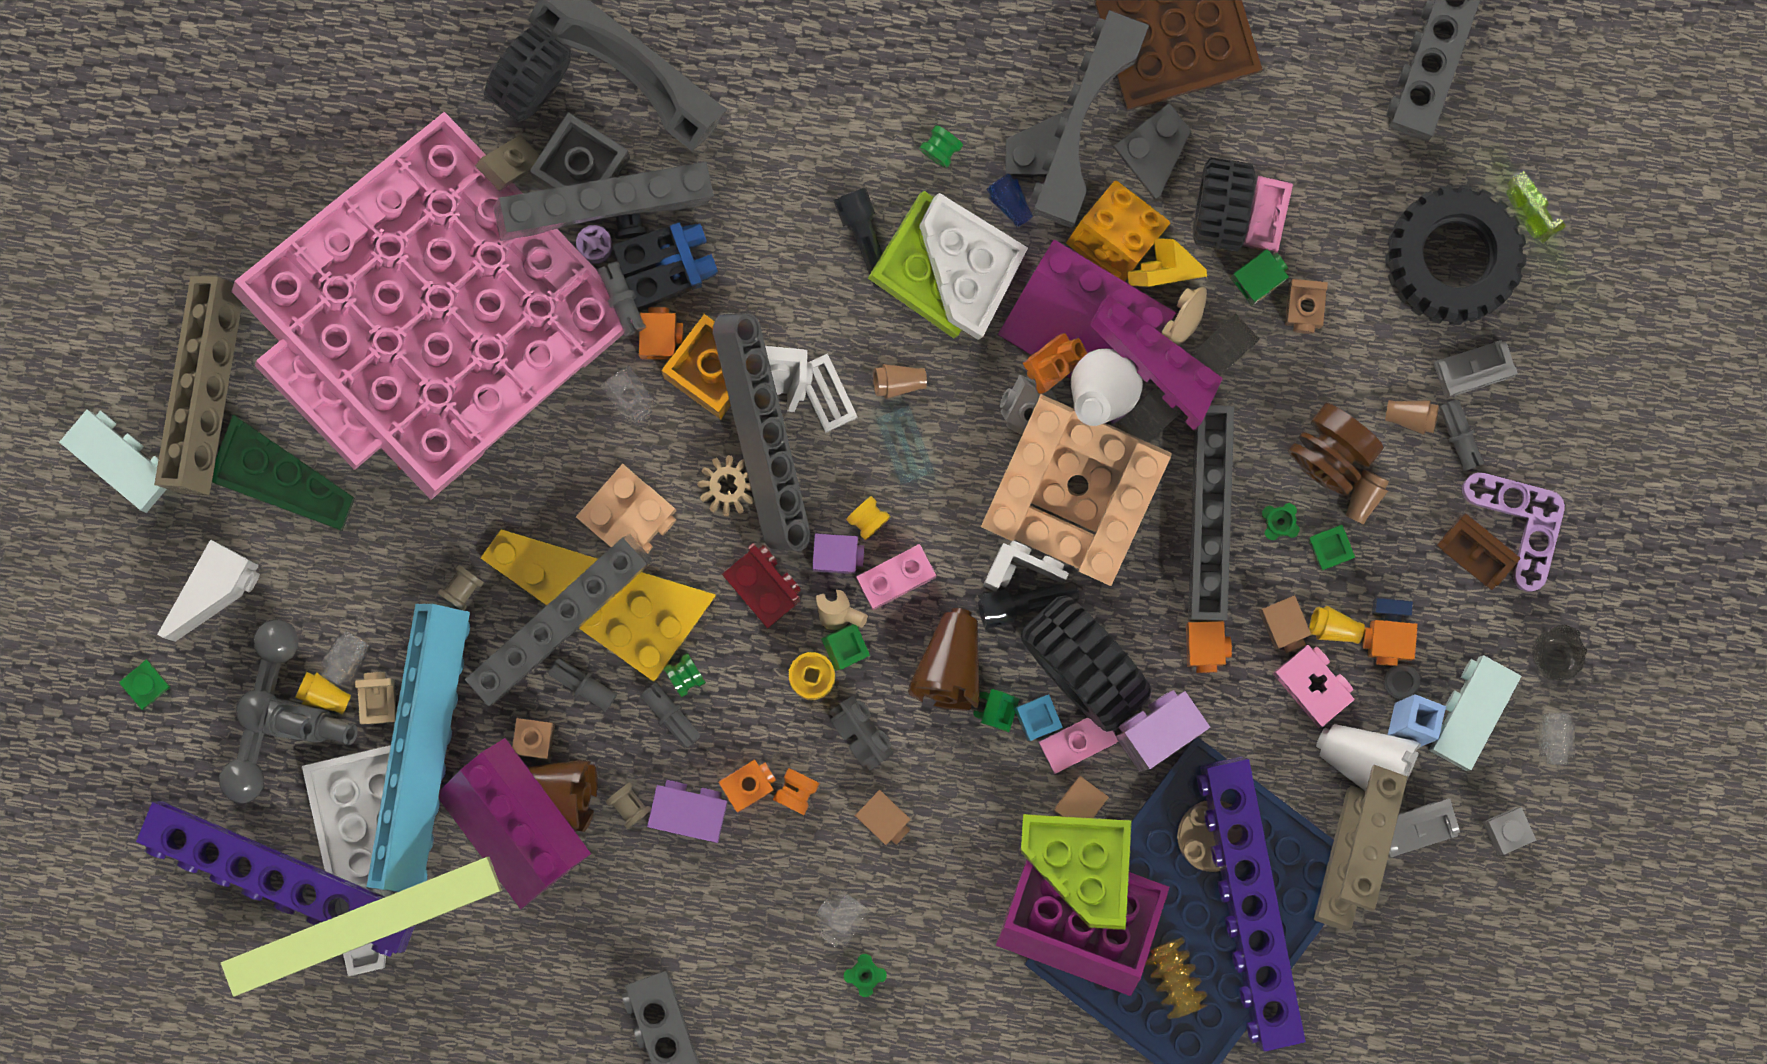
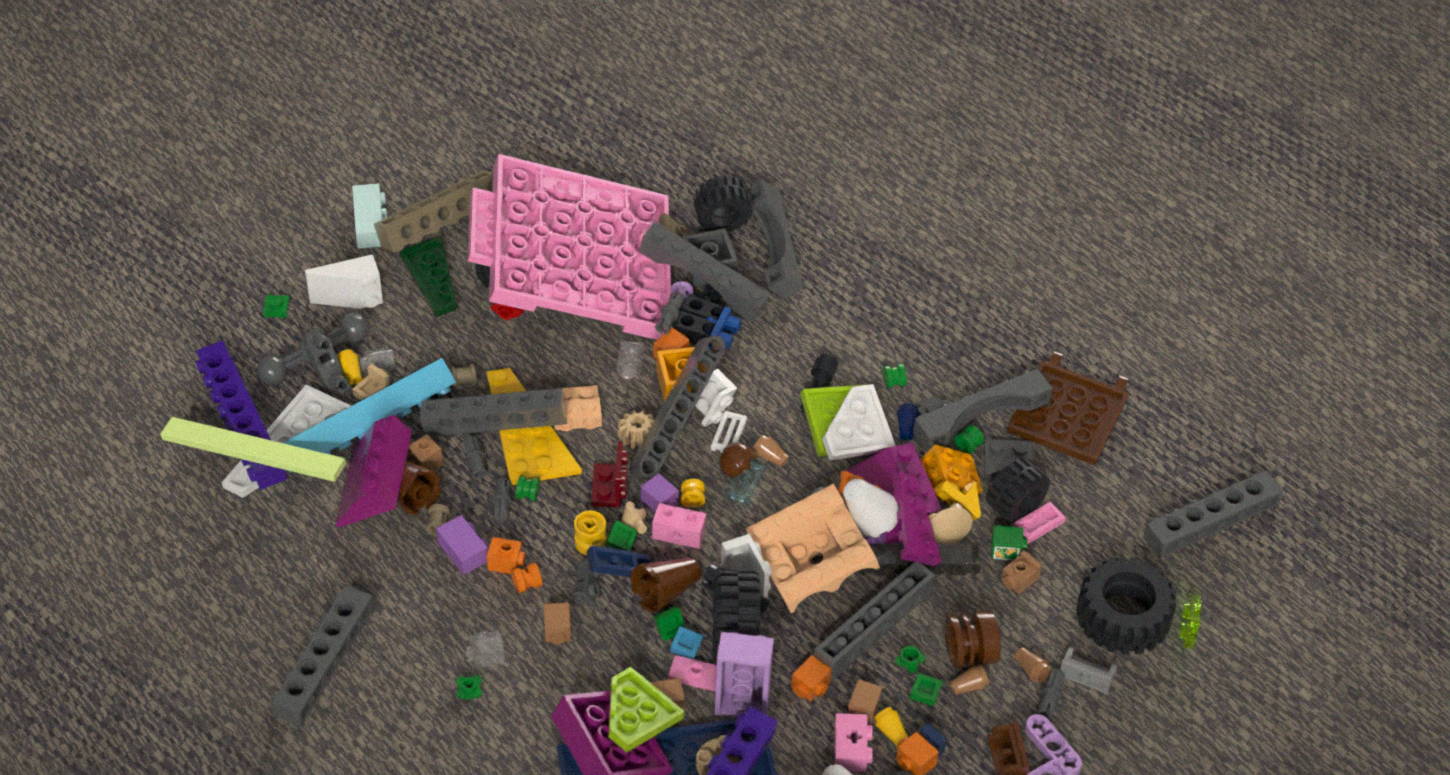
camera: 45 degrees right, 35 degrees down
(876, 430) = (736, 458): none -> reddish brown hair
(879, 690) = (614, 560): none -> dark blue hinge
(1100, 165) = (969, 439): none -> green wheel

